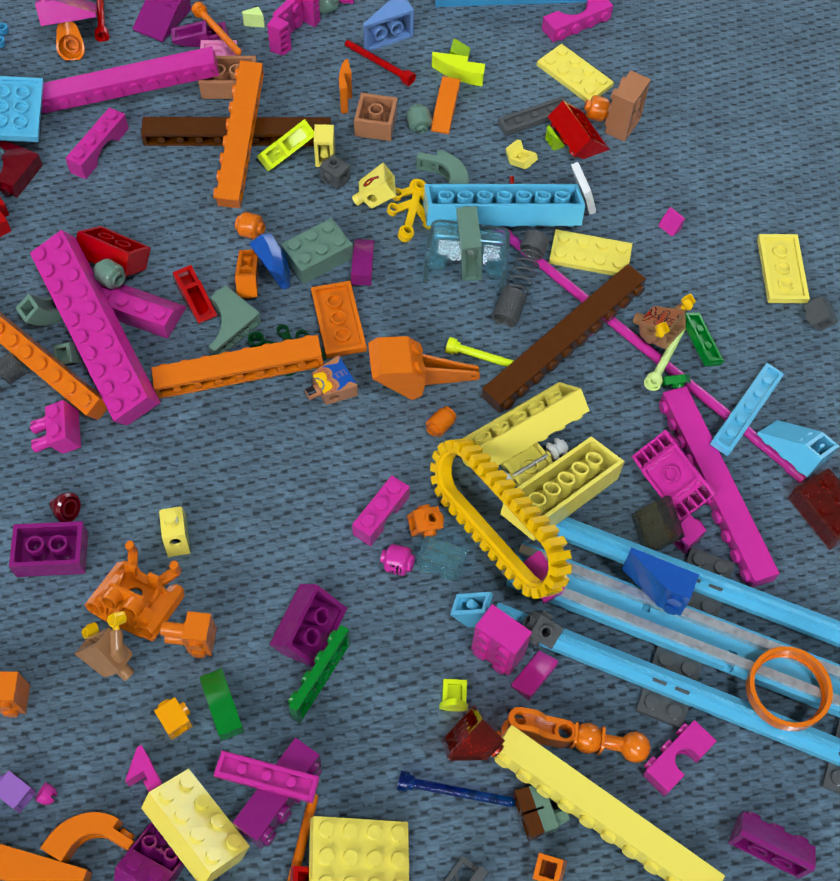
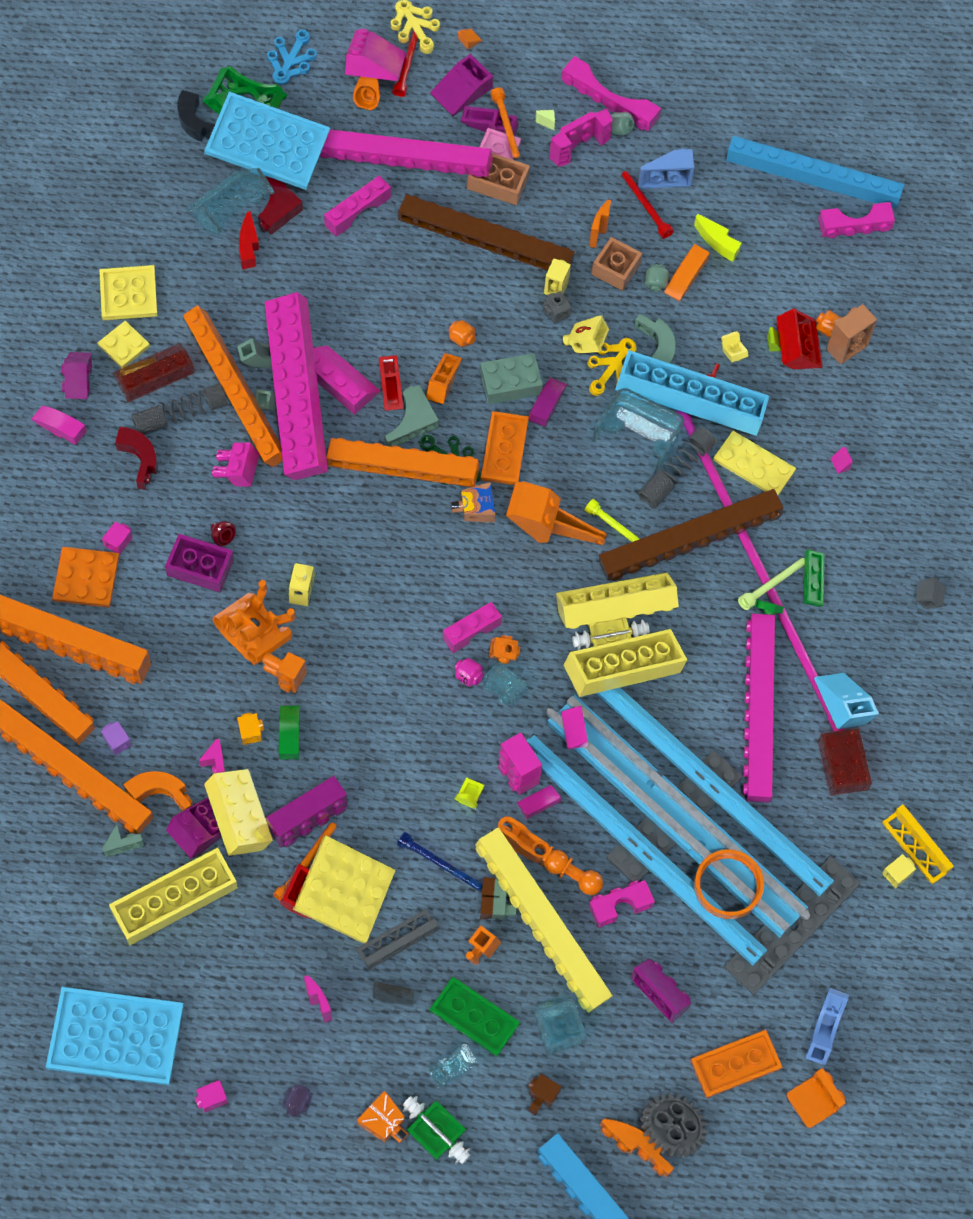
camera: 20 degrees right, 5 degrees up
(45, 793) = (138, 748): dark pink hinge -> none
(103, 243) = (335, 319): red brick -> none
(105, 648) = (217, 657): medium nougat torso -> none
(109, 273) = (324, 342): sand green head -> none
(240, 134) = (484, 243): orange brick -> none
(266, 776) = (302, 794): dark pink tile -> none
(272, 258) = (468, 374): blue slope -> none
(286, 145) = (523, 266): neon yellow slope -> none
(308, 624) = (378, 697): magenta slope -> none
(314, 680) = (368, 739): green plate -> none
(440, 421) = (553, 570): orange brick -> none
(459, 48) = (726, 218): lime slope -> none
(469, 243) = (641, 420): sand green arch -> none
(471, 607) = (508, 727): medium azure slope -> none
(473, 738) = (467, 826): clear red slope -> none
(516, 503) = (573, 662): yellow piece -> none
(528, 117) = (762, 309): dark grey plate -> none
(542, 628) = (555, 766): dark grey brick -> none
(574, 73) = (827, 278): light yellow plate -> none
(584, 188) = (774, 401): white tile -> none
(658, 524) = (692, 721): clear smoke tile -> none
(661, 581) = (669, 769): blue slope -> none
(663, 324) = (783, 553): medium nougat torso -> none
(673, 474) = (724, 687): dark pink plate -> none
(693, 532) = (715, 738): dark pink brick -> none
(746, 409) = (819, 653): medium azure tile -> none
(783, 268) = (921, 539): light yellow plate -> none

